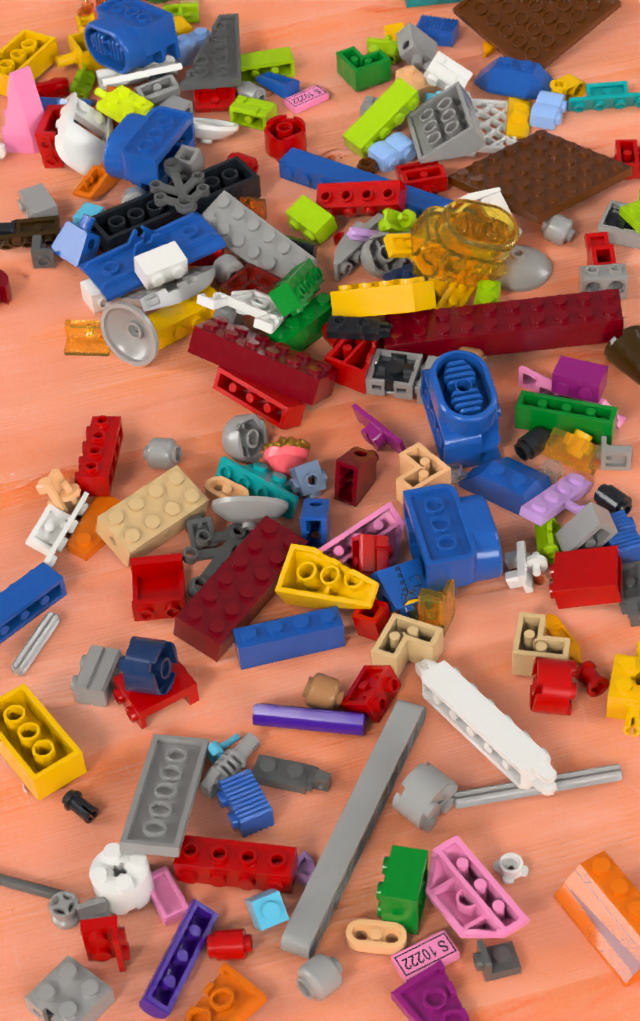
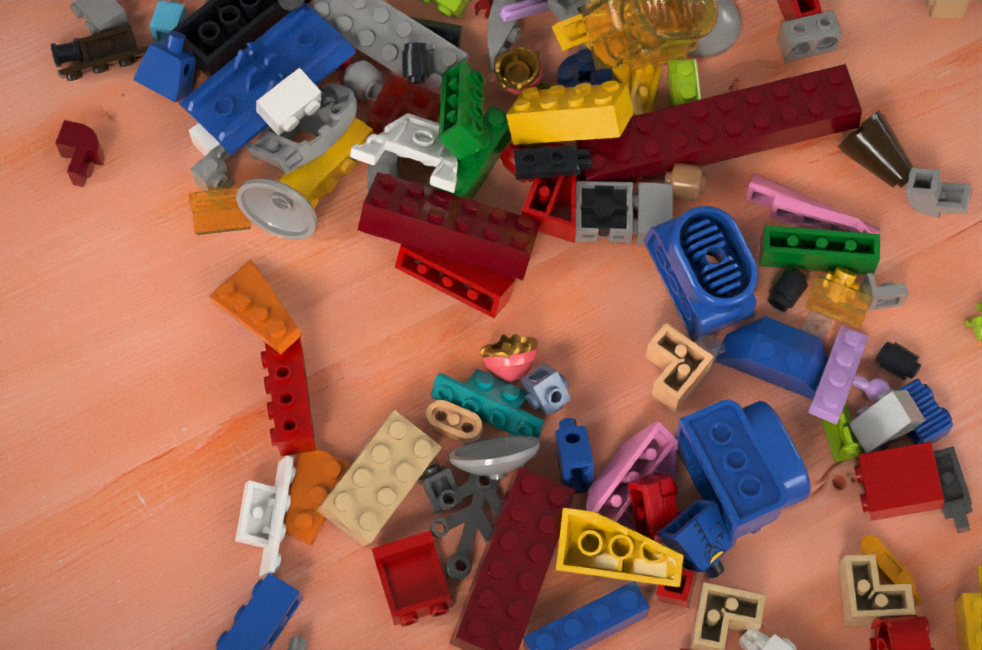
camera: 15 degrees left, 20 degrees up
(41, 255) = (124, 90): dark grey bracket -> none
(61, 493) = (257, 462): light nougat hips -> none
(87, 309) = (211, 173): none -> light grey brick
(92, 397) = (256, 307): none -> orange wing
(162, 453) = (362, 377): light grey head -> none
(244, 438) = (453, 340): light grey cylinder -> none
(271, 256) = (415, 62): none -> black brick
(354, 271) = (518, 69): none -> pearl gold hair
(355, 475) = (603, 367): dark red torso -> none
(375, 256) = (538, 34): light grey cylinder -> none
(376, 433) = (605, 305): magenta piece -> none
(438, 607) = (747, 565): clear yellow panel -> none
(526, 565) = (824, 488): white hips -> none
(579, 379) = (827, 199): magenta brick -> none
(592, 680) = (938, 621): red bush -> none

